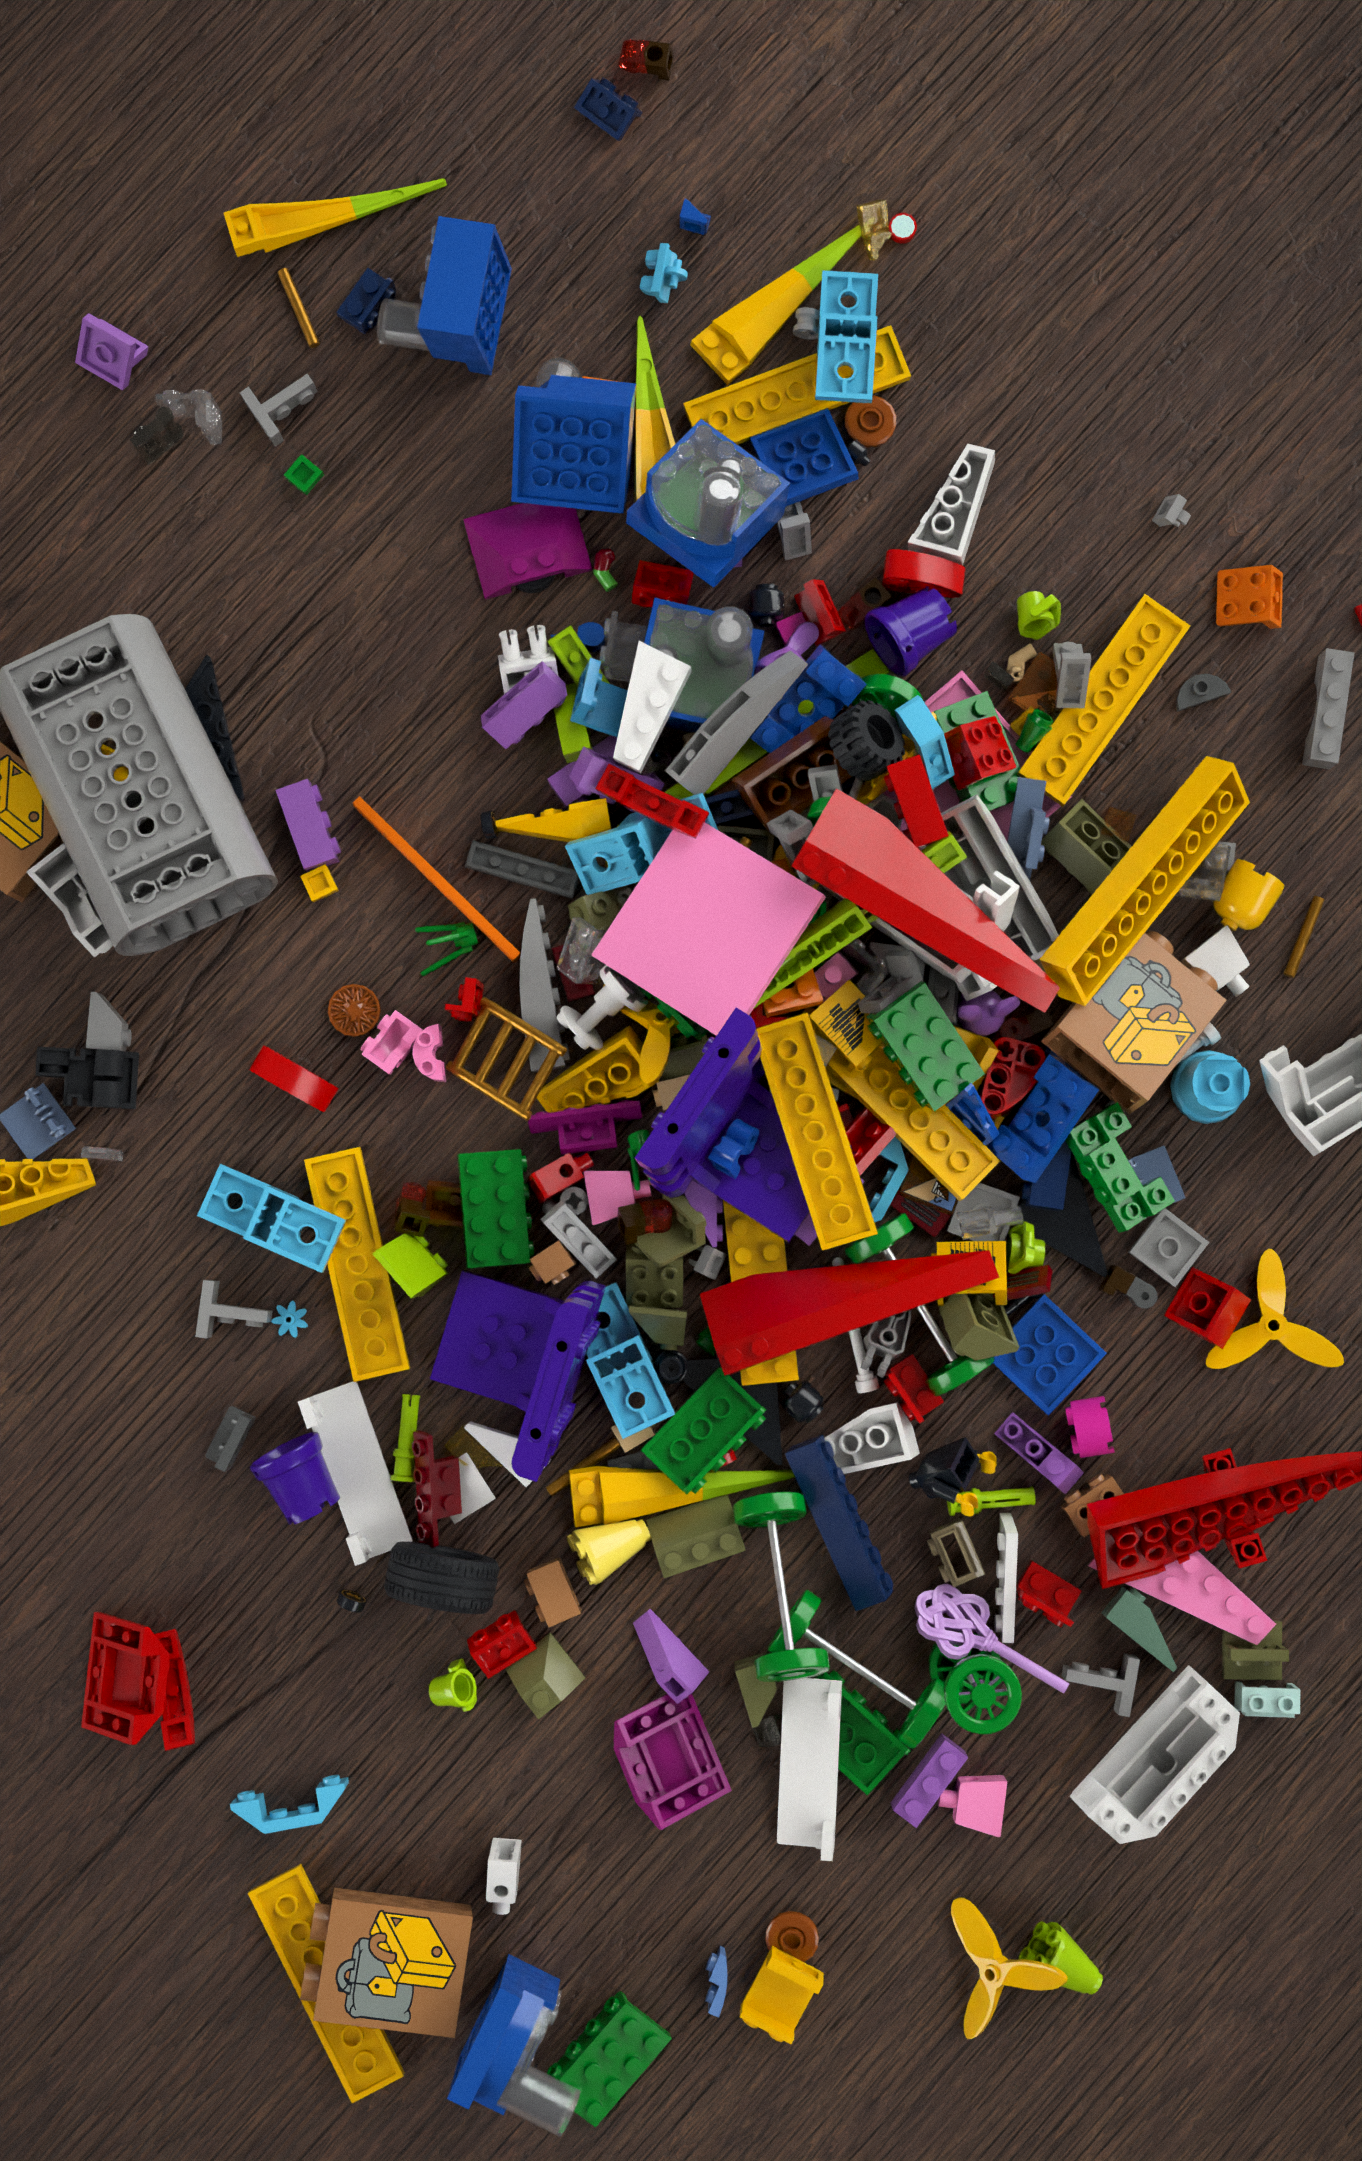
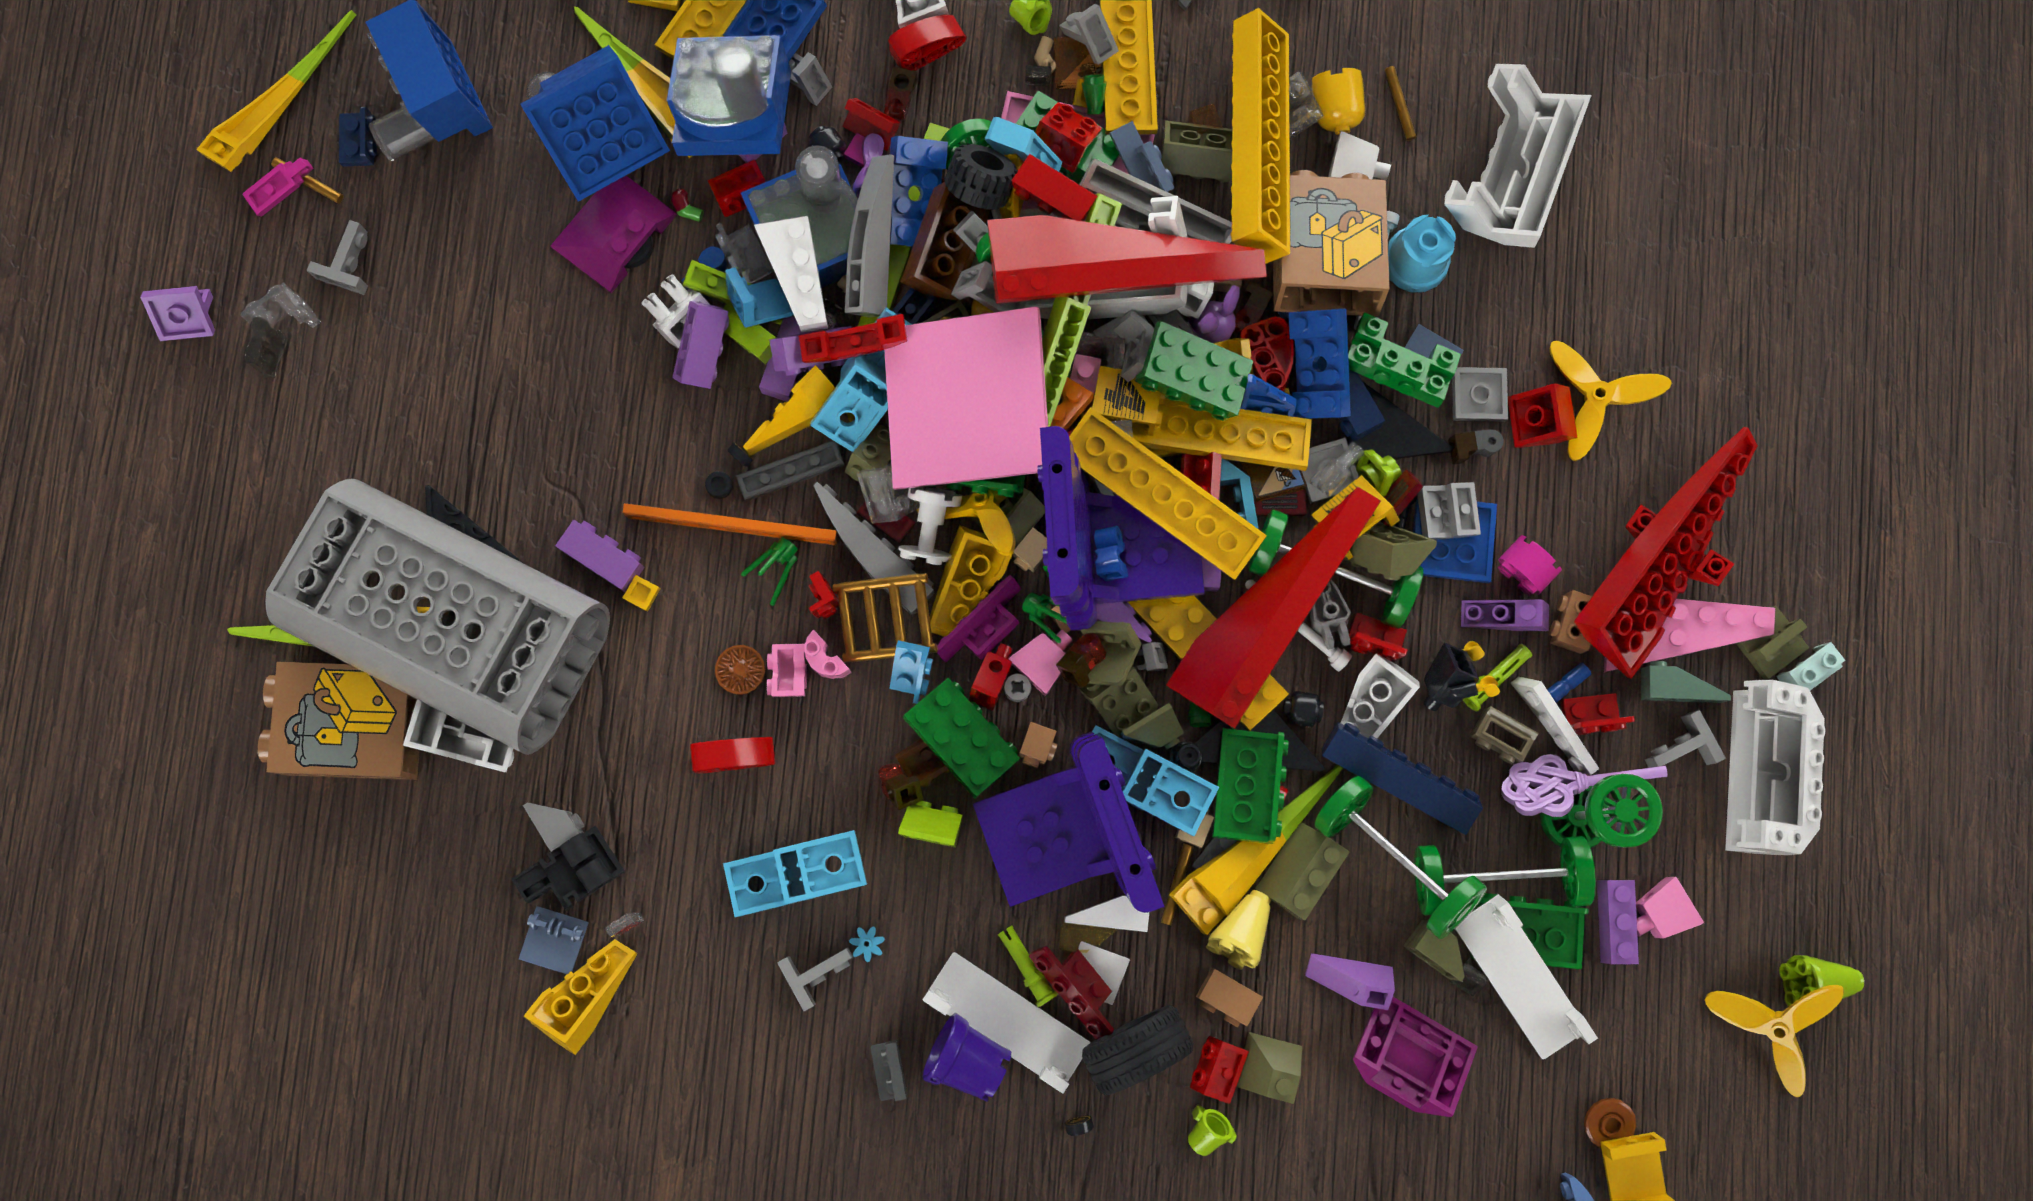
camera: 45 degrees left, 5 degrees down
(268, 295) = (276, 185): none -> dark pink hinge
(303, 474) = (402, 298): green plate -> none
(357, 1278) = (891, 862): yellow plate -> none
(453, 837) = (719, 485): none -> black tile
(495, 1118) = (909, 669): none -> dark azure bracket
(577, 1237) = (1041, 711): light grey piece -> none
(909, 629) = (947, 85): dark purple piece -> none
(1048, 1550) = (1569, 681): none -> blue piece
(1058, 1328) = (1449, 511): none -> light grey slope

